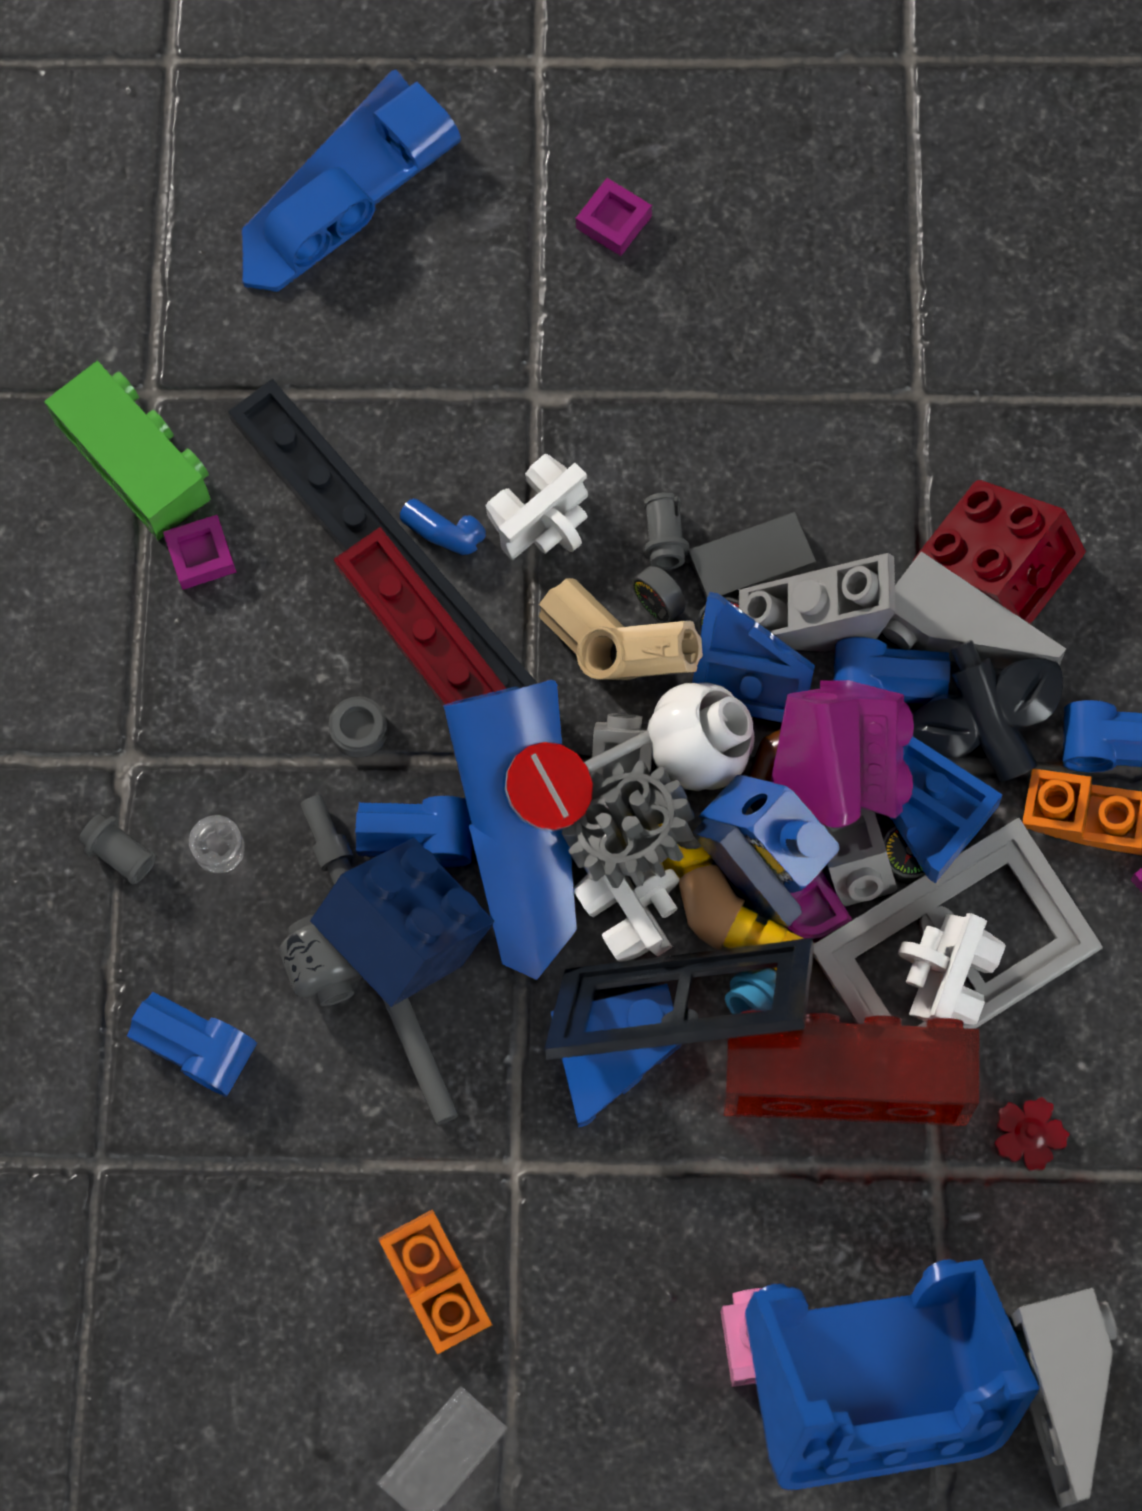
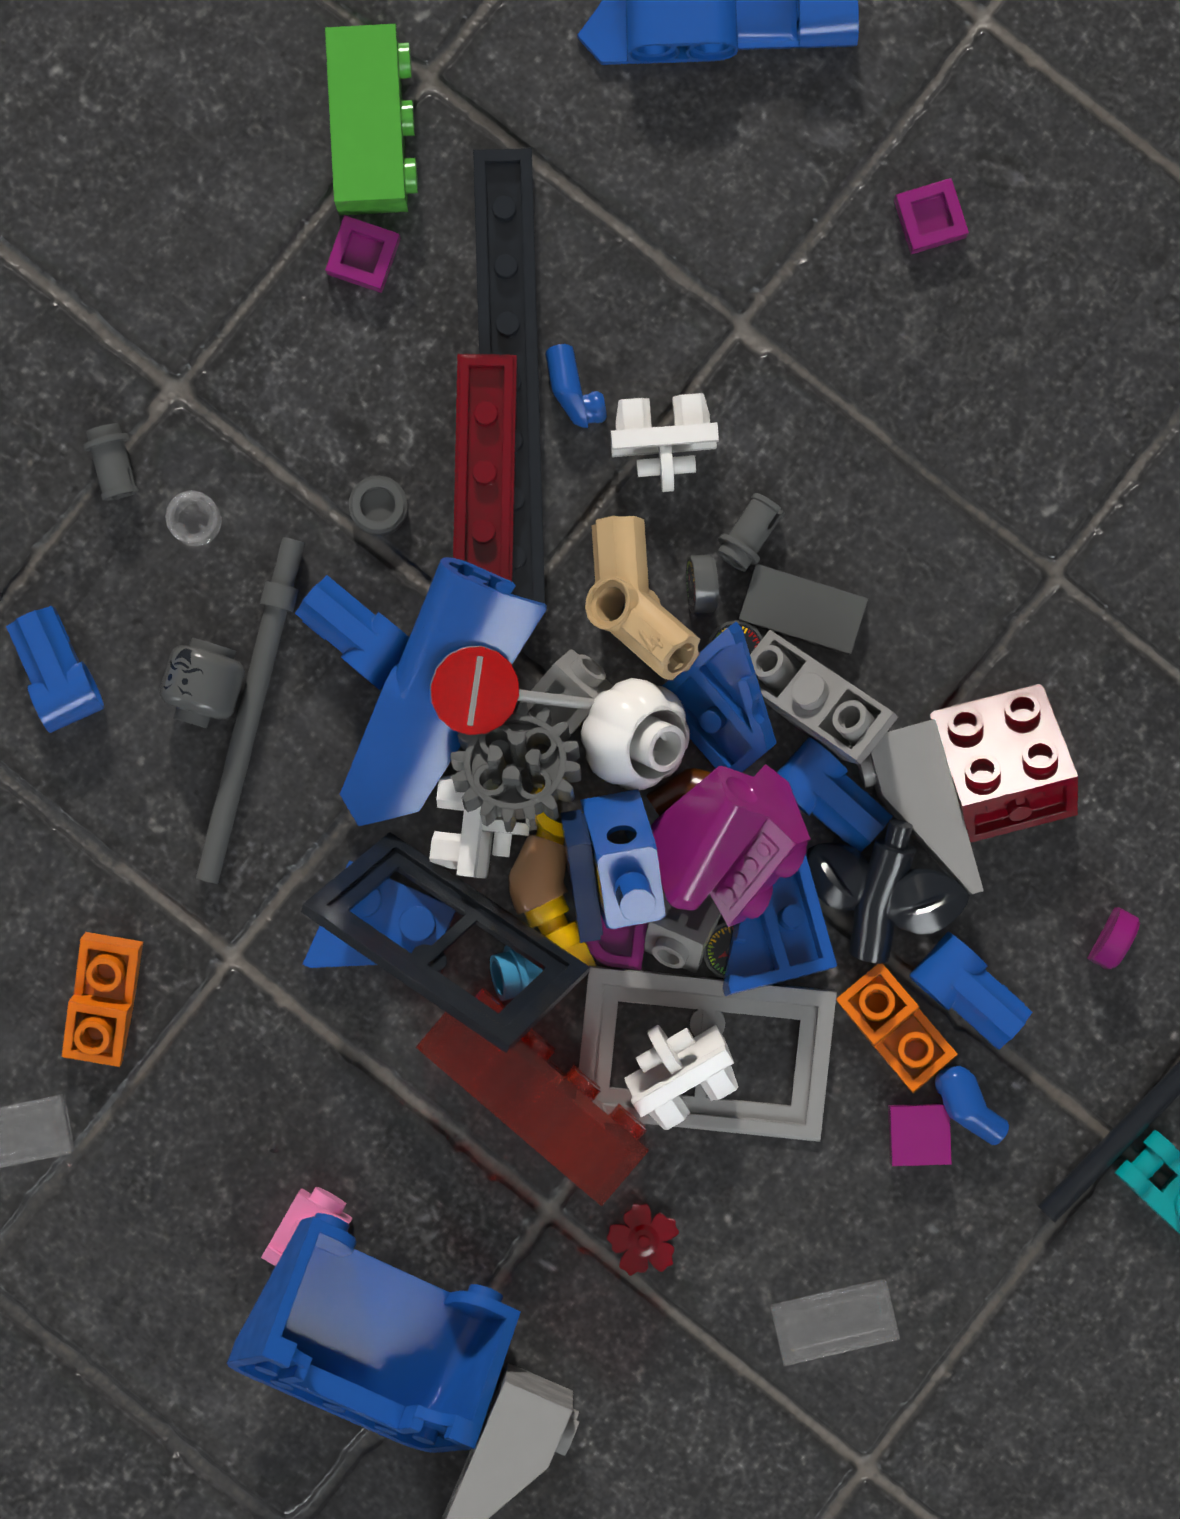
camera: 30 degrees right, 15 degrees up
(401, 921) = (281, 705): dark blue brick -> none

